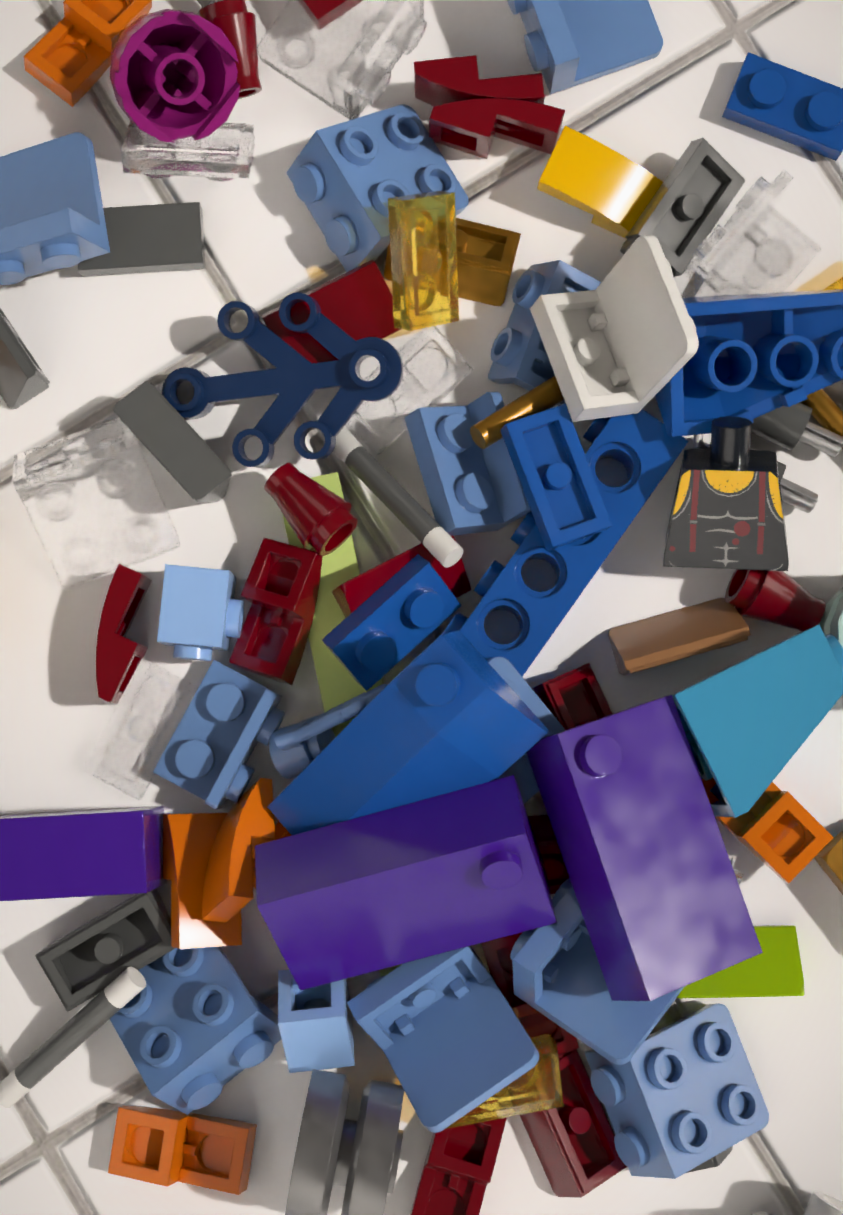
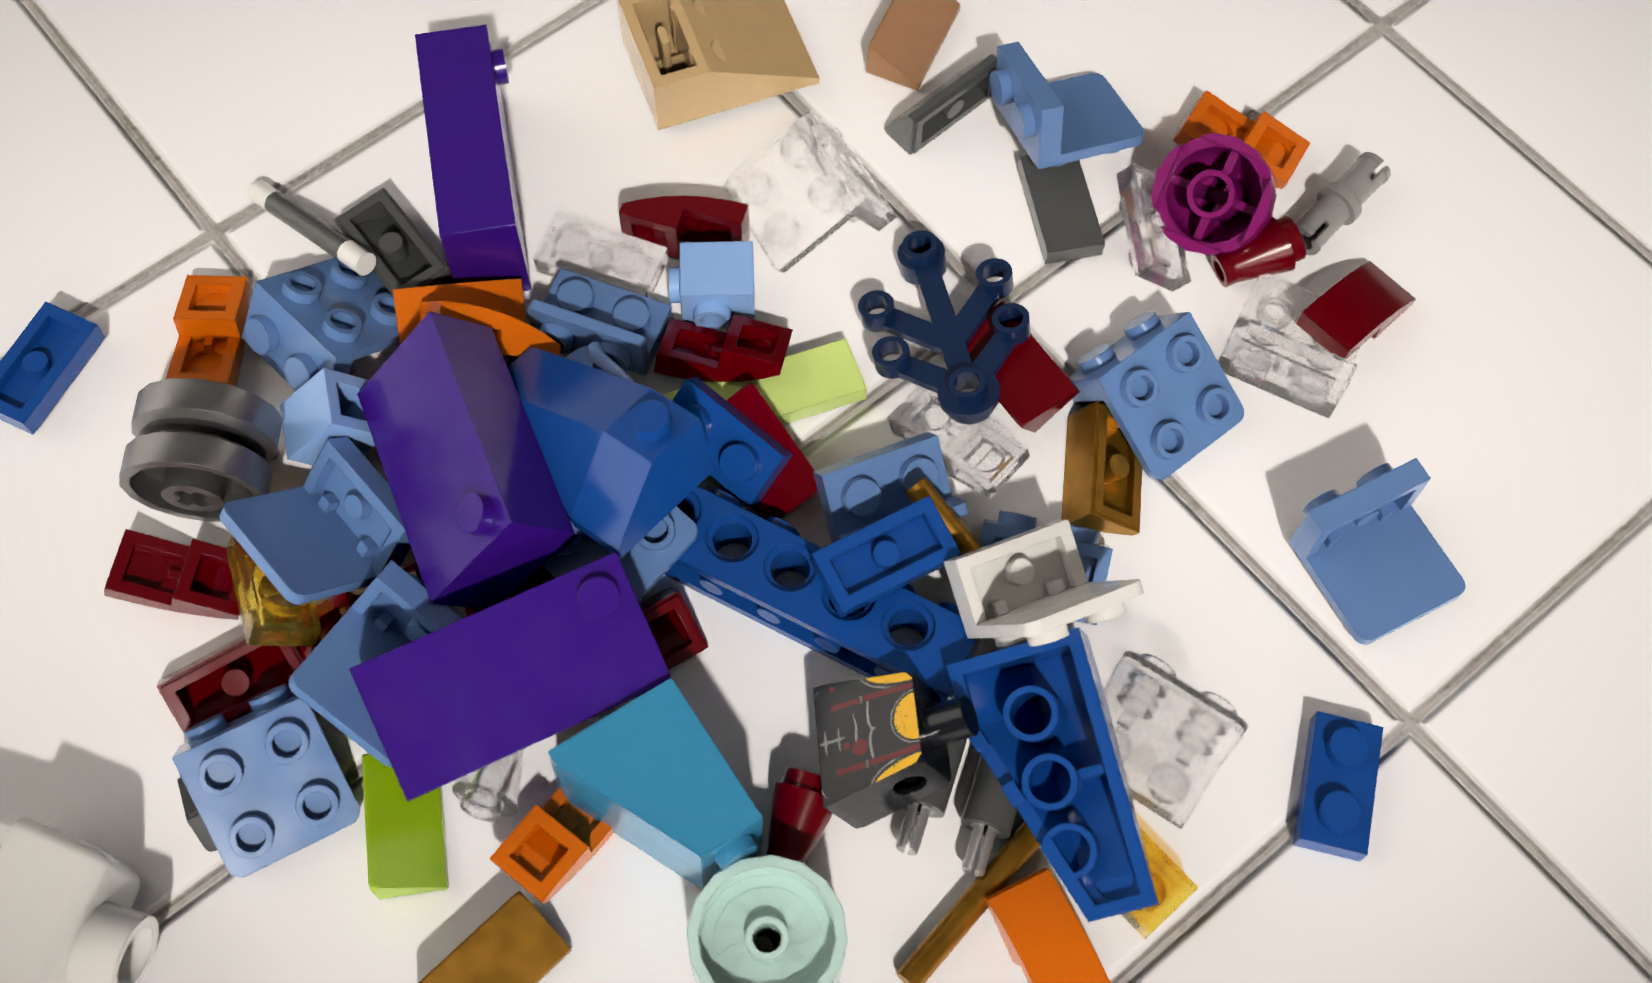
camera: 80 degrees right, 20 degrees down
(174, 443) = (865, 240): dark grey slope -> none
(313, 512) = (820, 363): dark red cone -> none
(397, 499) = (845, 433): dark grey bar -> none
(423, 260) = (1085, 422): clear yellow plate -> none
(458, 80) = (1271, 457): dark red slope -> none
(475, 123) = (1241, 478): dark red slope -> none
(598, 181) = (1203, 601): yellow slope -> none
(677, 635) = (743, 724): medium nougat slope -> none
(688, 204) = (1191, 660): dark grey hinge -> none

